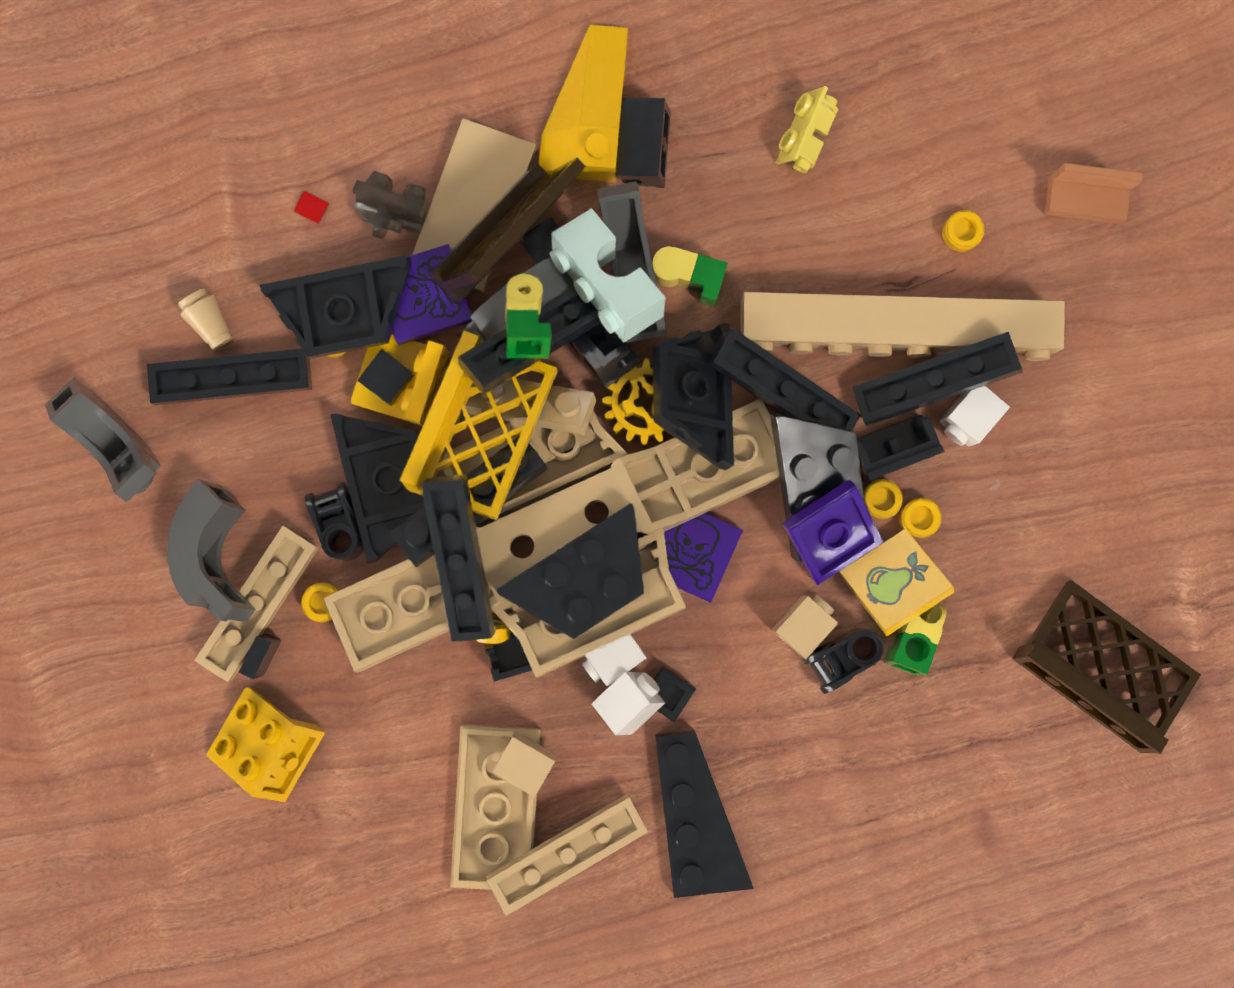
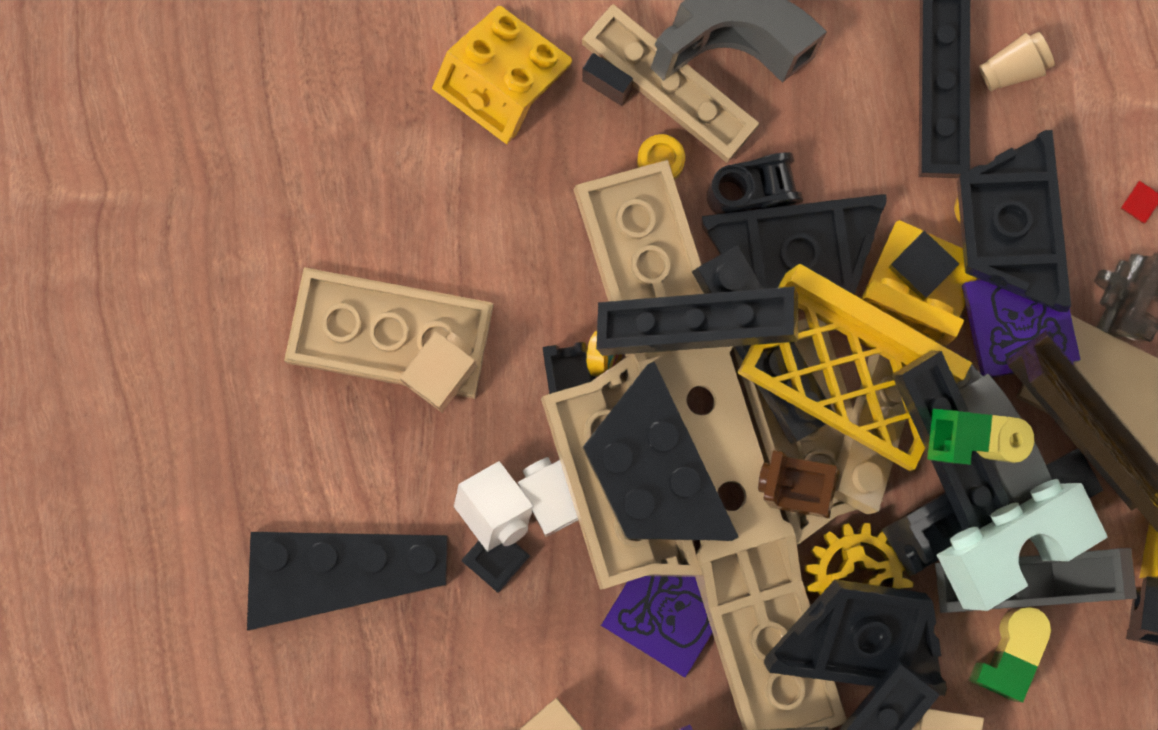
camera: 100 degrees right, 5 degrees down
(566, 854) = (323, 409): tan plate -> none
(581, 459) = (798, 485): none -> reddish brown bracket

